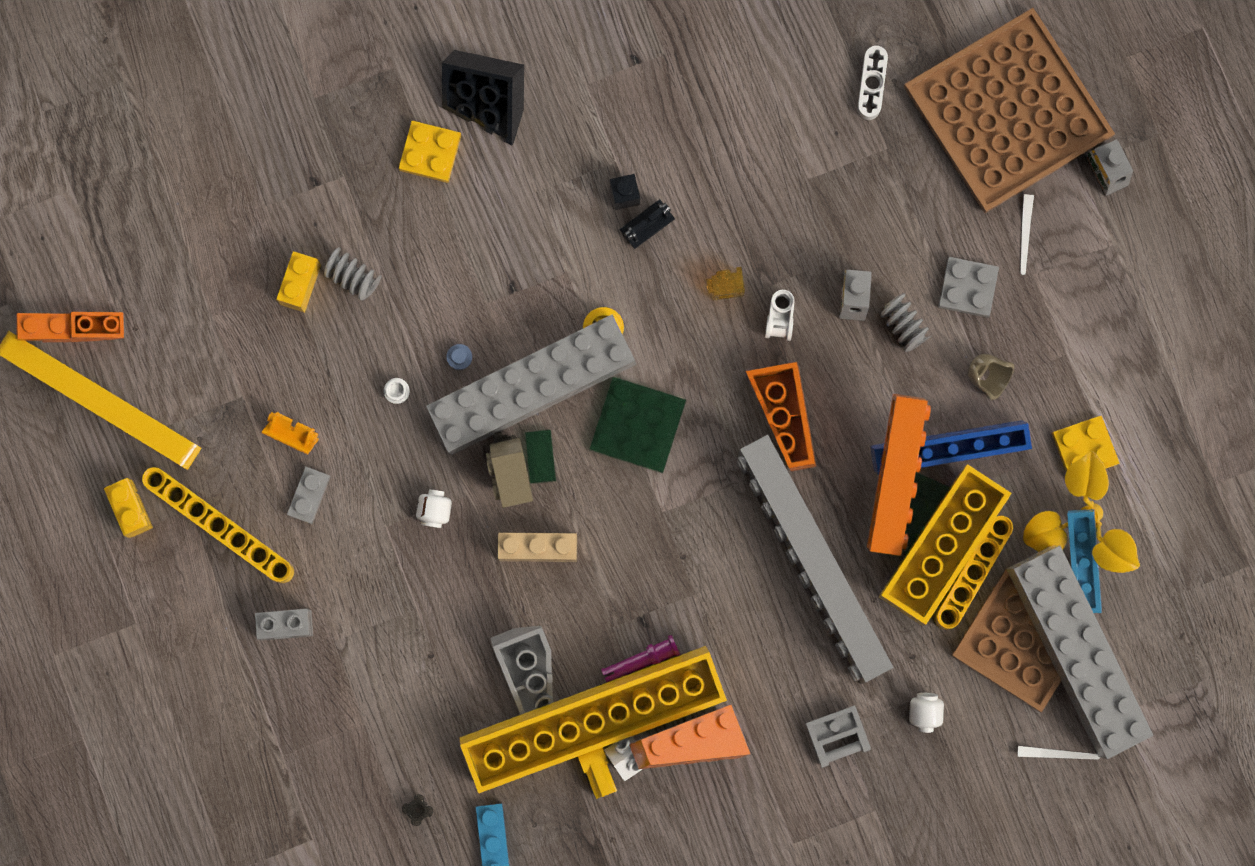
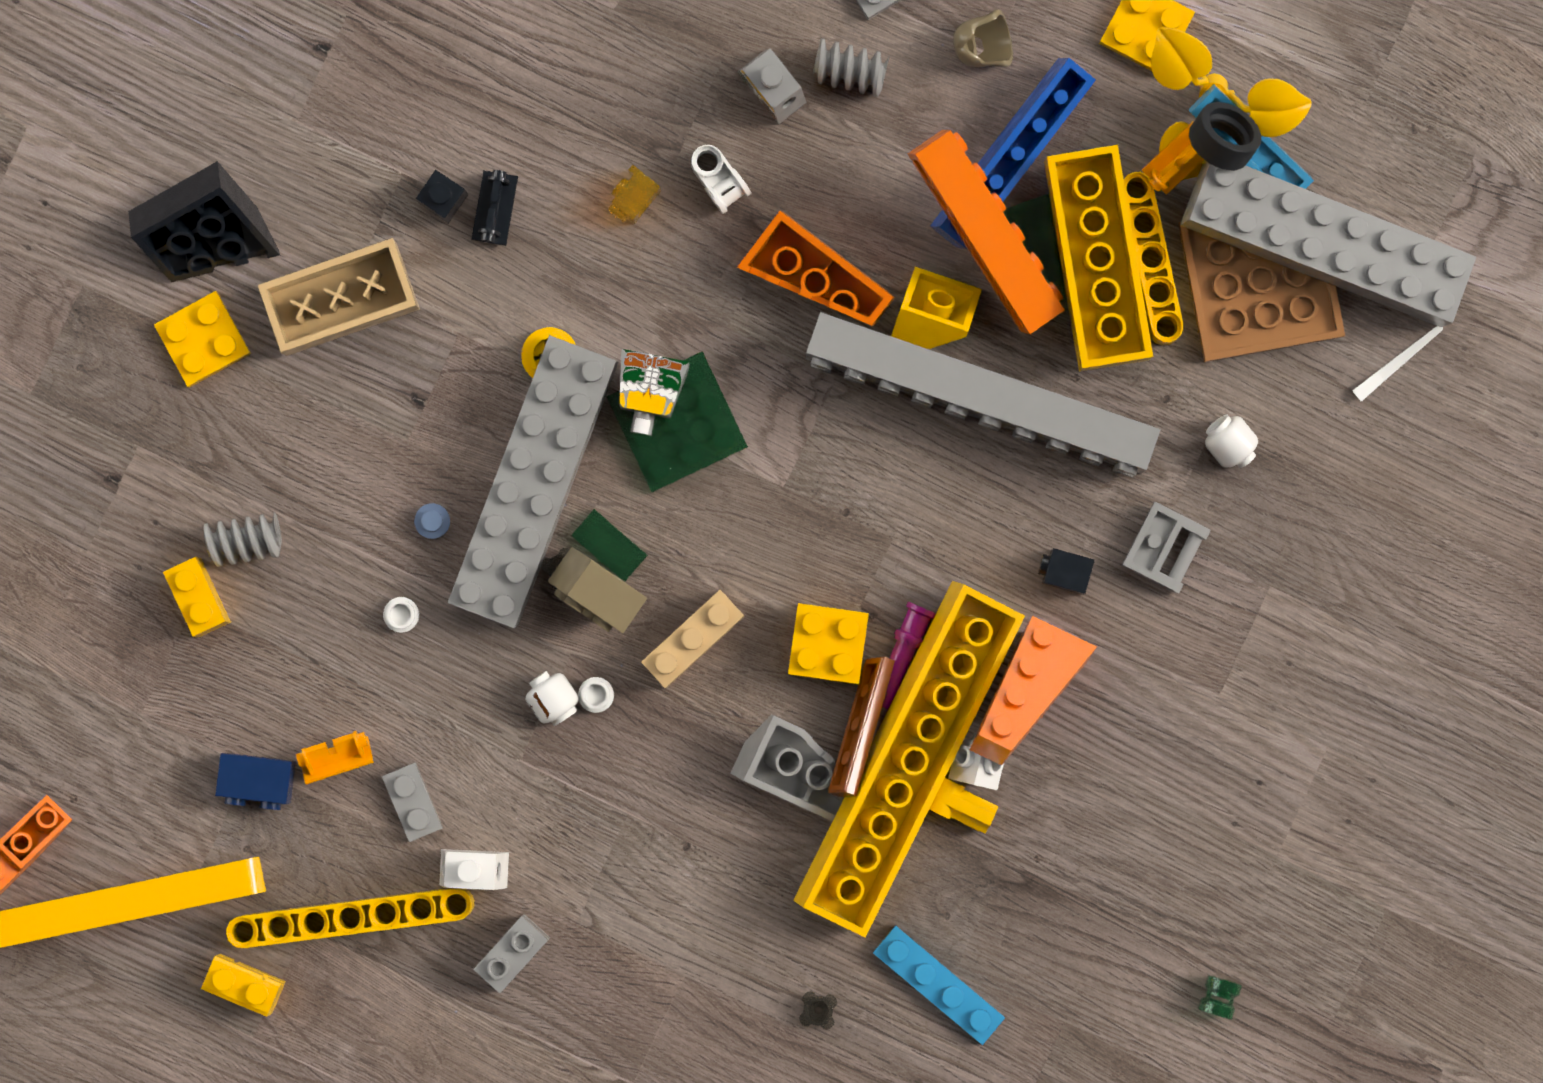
camera: 40 degrees left, 5 degrees up
(238, 406) = (255, 779): none -> dark blue brick
(307, 561) = (473, 869): none -> white torso
(458, 529) = (596, 694): none -> white plate
(521, 194) = (338, 297): none -> tan brick
(583, 678) = (861, 727): none -> dark orange tile
(607, 617) = (828, 643): none -> yellow brick
(640, 392) = (649, 387): none -> torso
(772, 698) = (1066, 571): none -> black brick
(831, 492) = (935, 310): none -> yellow slope
(1038, 532) = (1173, 163): none -> light orange hinge
(1063, 545) = (1235, 124): none -> black tyre

